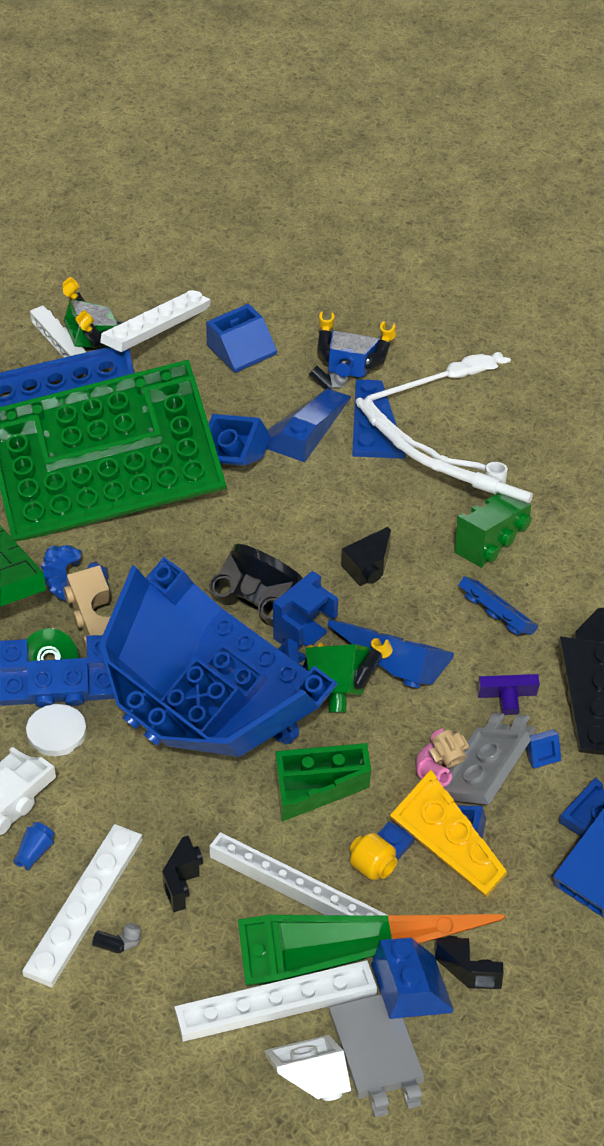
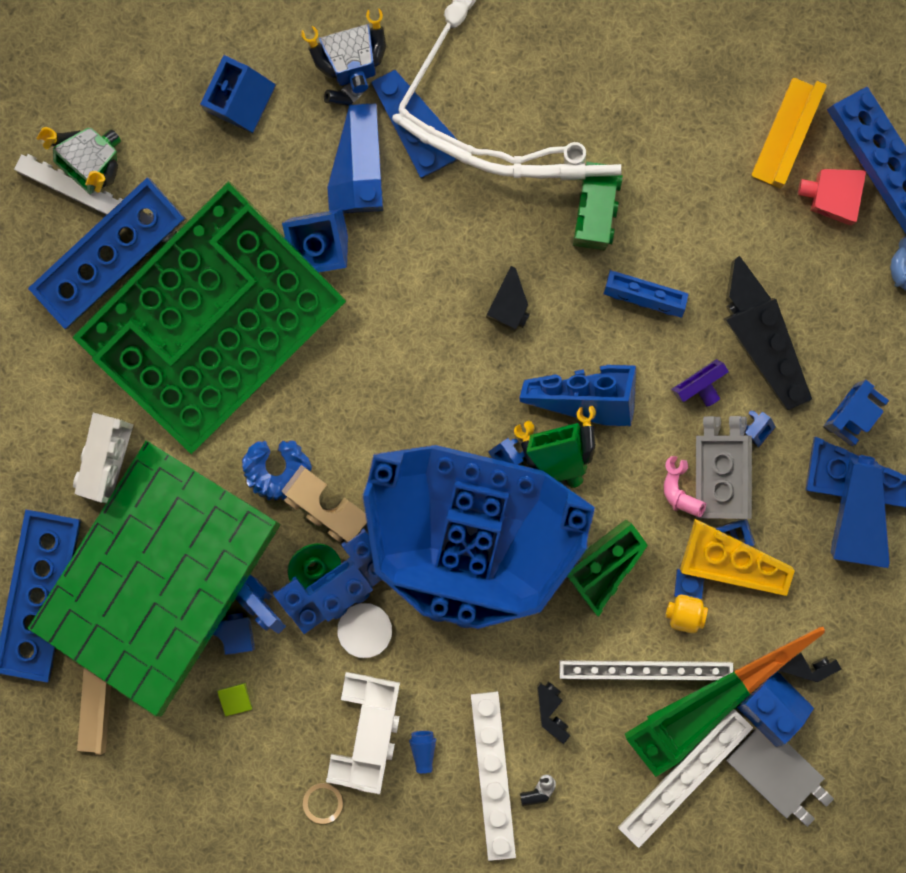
camera: 30 degrees left, 40 degrees up
(155, 321) = (148, 123): white plate -> none
(254, 580) = (440, 393): black piece -> none
(298, 607) = (498, 406): blue panel -> none
(314, 1066) = (740, 819): white slope -> none
(449, 748) = (692, 482): tan gear -> none

